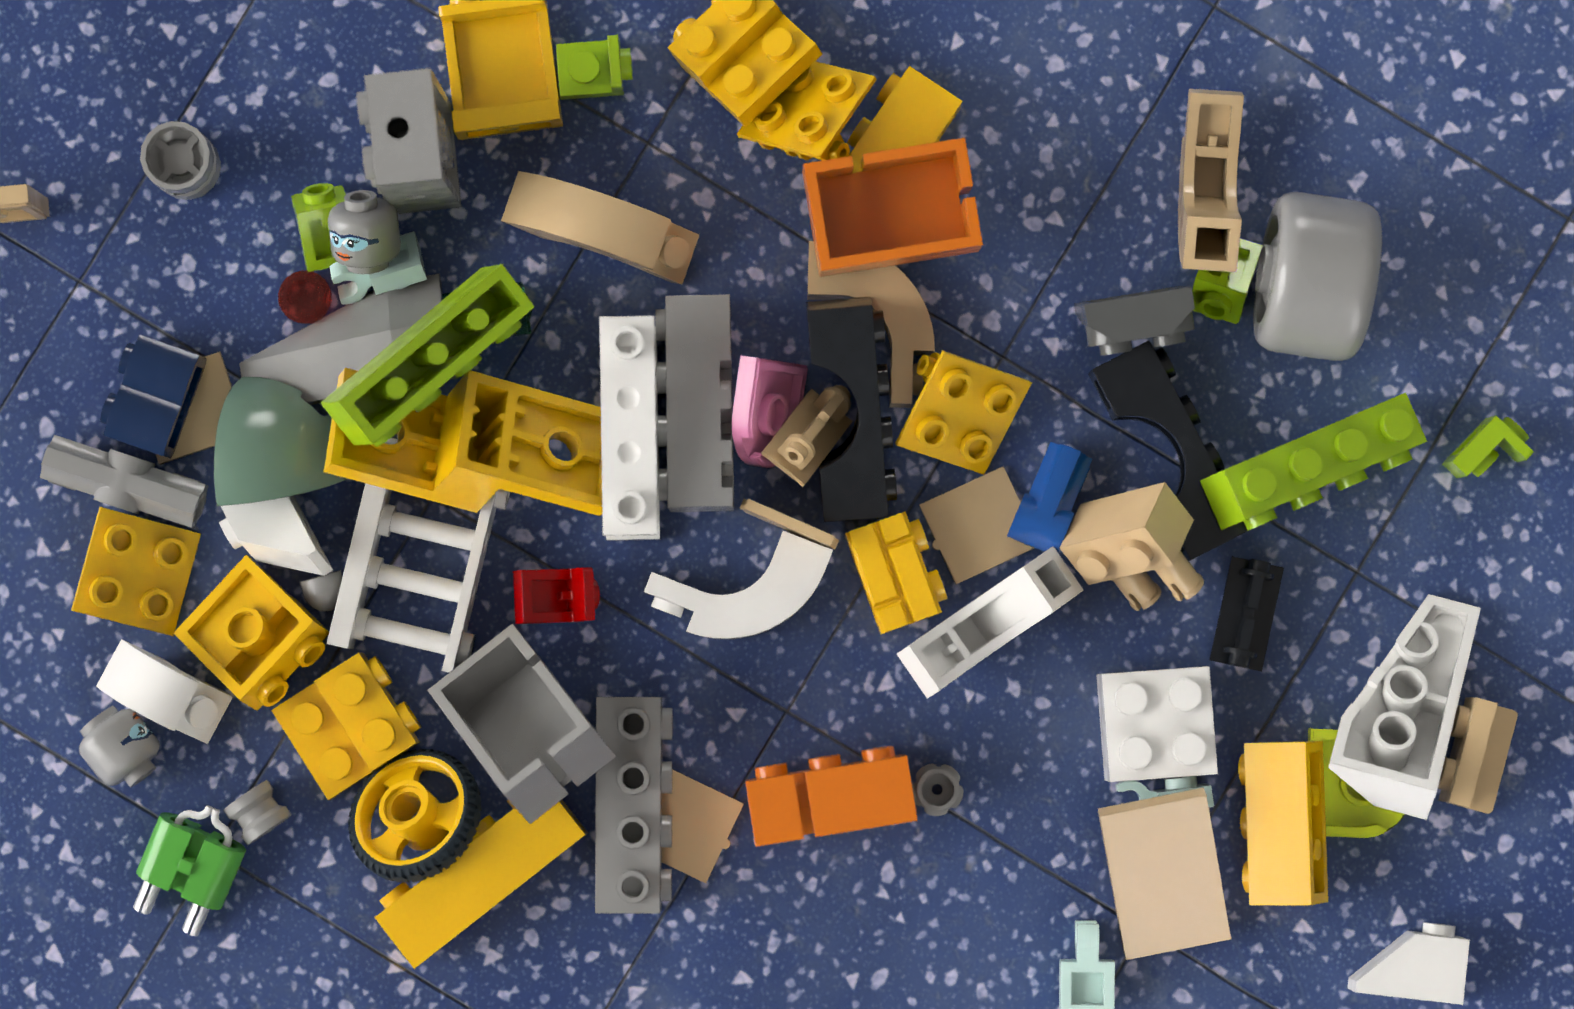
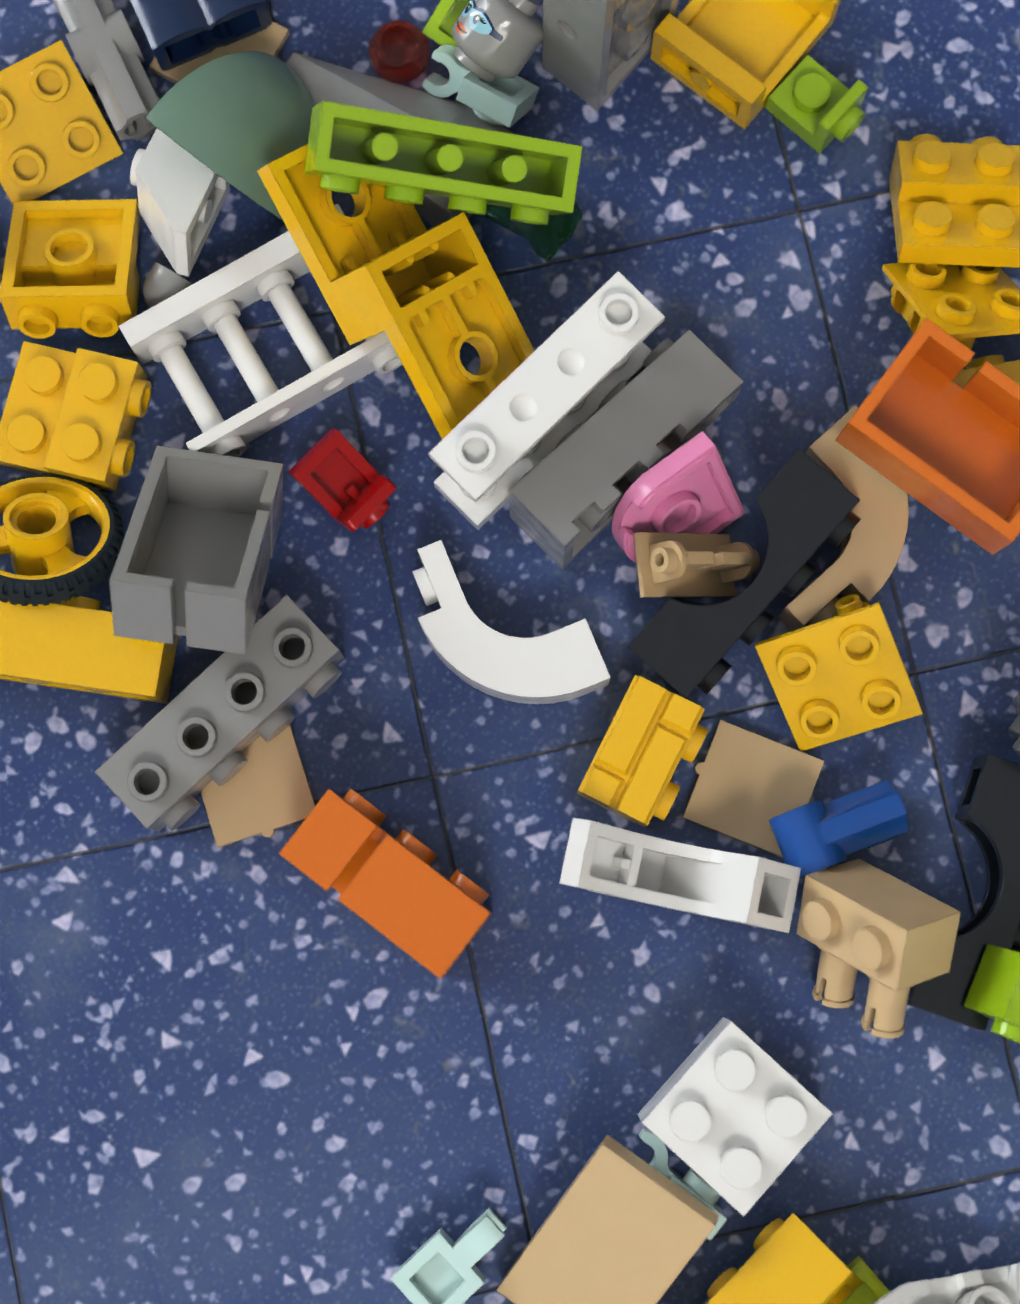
camera: 50 degrees right, 5 degrees down
(600, 224) = (698, 216): tan arch -> none
(789, 524) = (596, 616): tan piece -> none
(951, 790) = (506, 967): light grey plate -> none
(1246, 613) = (907, 1100): black hinge -> none

